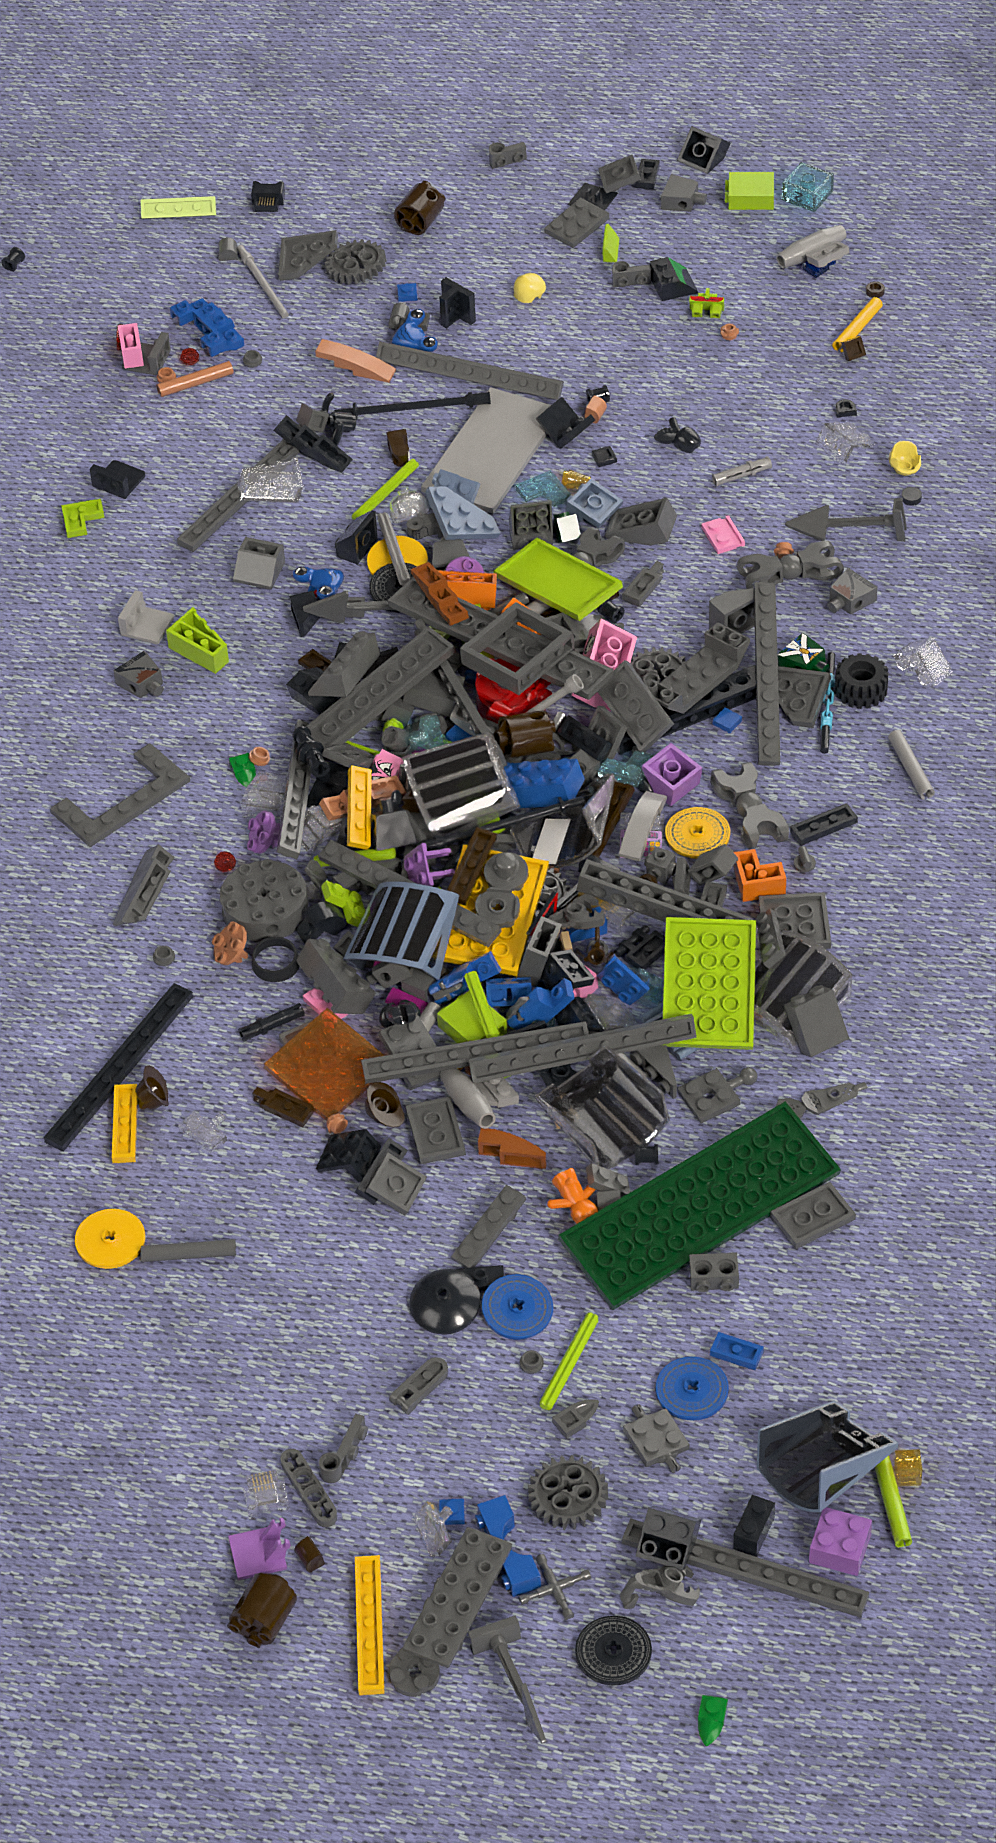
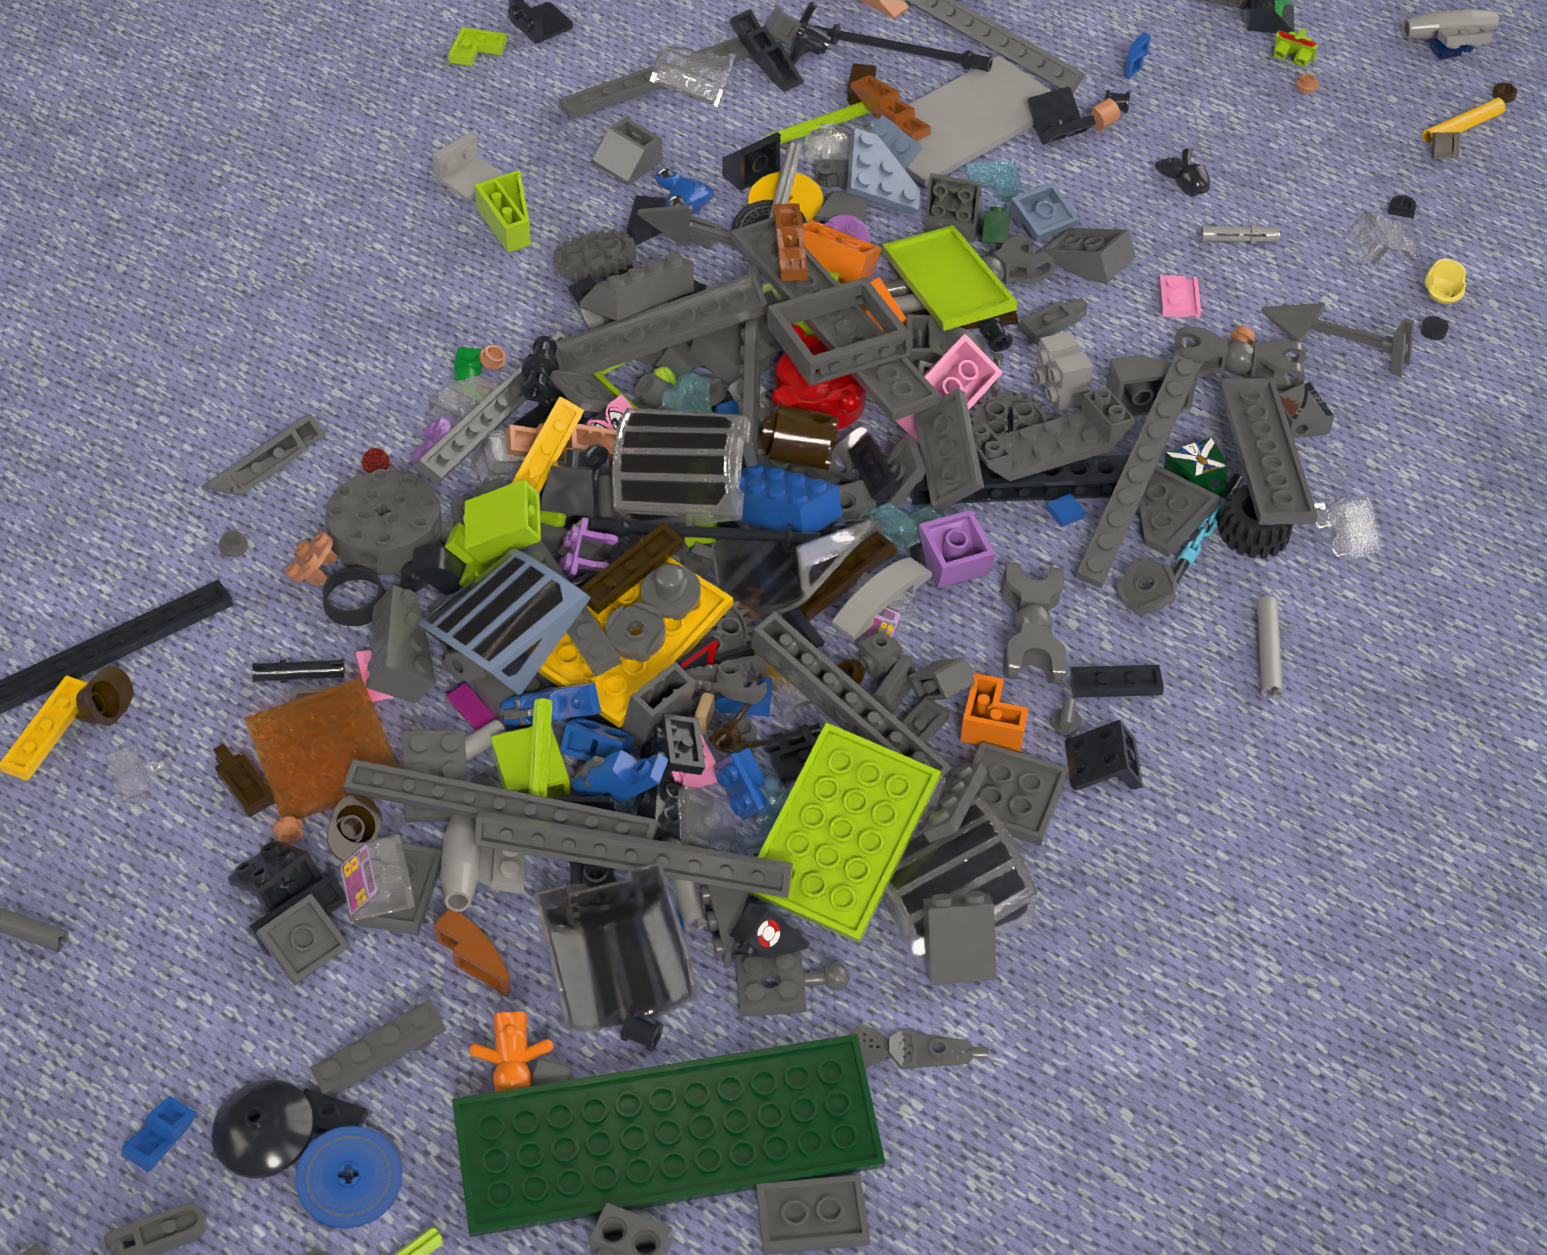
camera: 20 degrees right, 0 degrees up
(90, 831) = (256, 374): dark grey plate -> none
(139, 676) = (421, 225): dark grey torso -> none
(285, 653) = (594, 255): none -> dark grey gear
(360, 867) = (502, 521): none -> lime brick
(380, 1330) = (161, 1132): none -> blue slope
(398, 1014) = (442, 720): black piece -> none
(423, 1128) = (377, 879): none -> clear slope
(431, 458) = (885, 101): none -> dark orange slope
(551, 840) = (762, 576): white sticker -> none
(572, 685) = (878, 395): light grey piece -> none
(573, 479) = (1034, 177): clear yellow cone -> none
(593, 351) = (1136, 54): none -> blue slope
(604, 456) = (1088, 167): black tile -> none
(605, 1179) = (565, 1047): dark grey plate -> none
(676, 620) = (1062, 370): none -> light grey brick
(681, 828) = (933, 641): yellow piece -> none
(693, 1065) = (765, 934): none -> black slope
(816, 763) = (1150, 600): none -> dark grey plate
(841, 876) = (1104, 755): none -> black bracket
(847, 628) = (1267, 452): none -> dark grey plate

